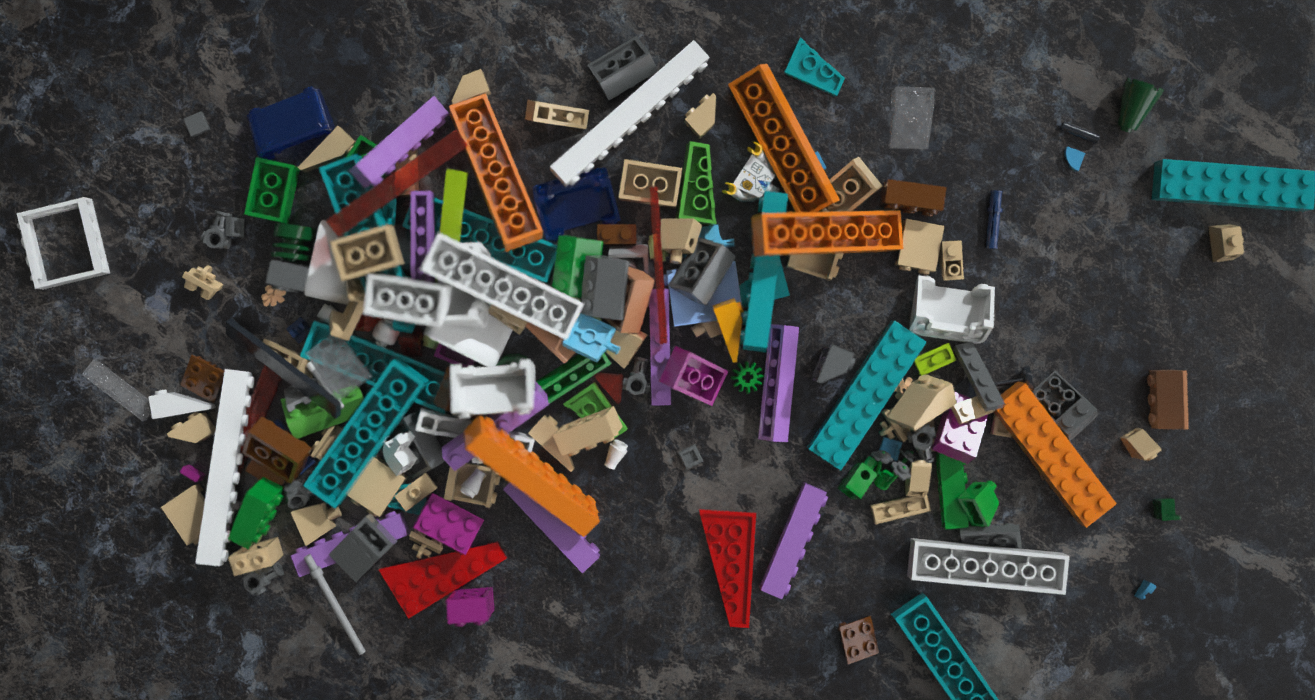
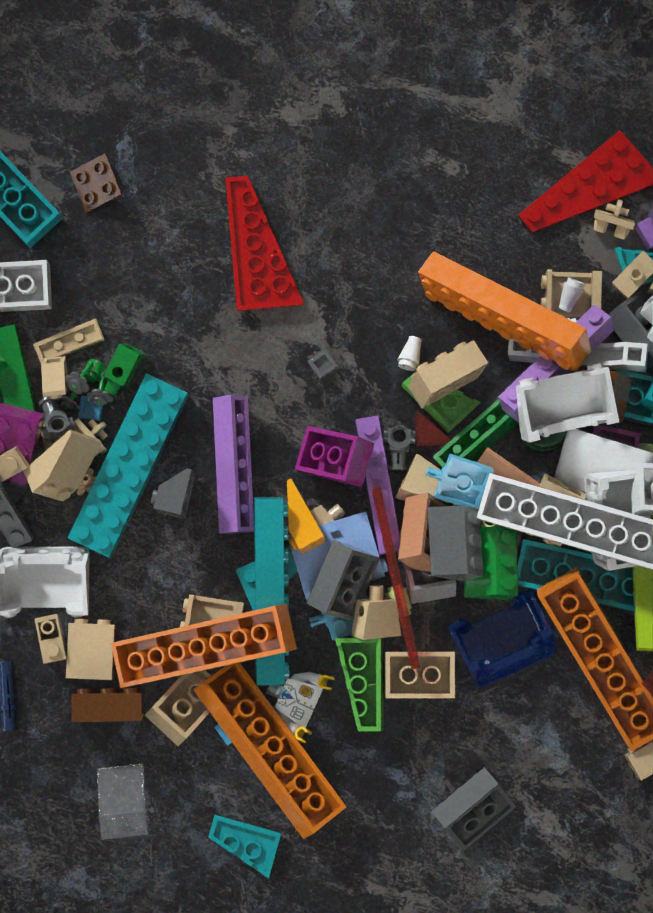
camera: 175 degrees right, 5 degrees down
(447, 524) = (592, 243): magenta brick -> none
(470, 606) = (550, 153): magenta brick -> none
(543, 434) = (498, 364): tan slope -> none
(556, 114) = (543, 741): tan slope -> none
(570, 542) = (443, 240): medium lavender brick -> none
(617, 234) = (449, 609): reddish brown brick -> none
(629, 114) = (457, 753): white brick -> none
(702, 118) = (369, 764): tan slope -> none
(742, 372) = (277, 470): green gear -> none
(792, 540) = (189, 285): medium lavender brick -> none
(934, 359) = (54, 520): lime plate -> none

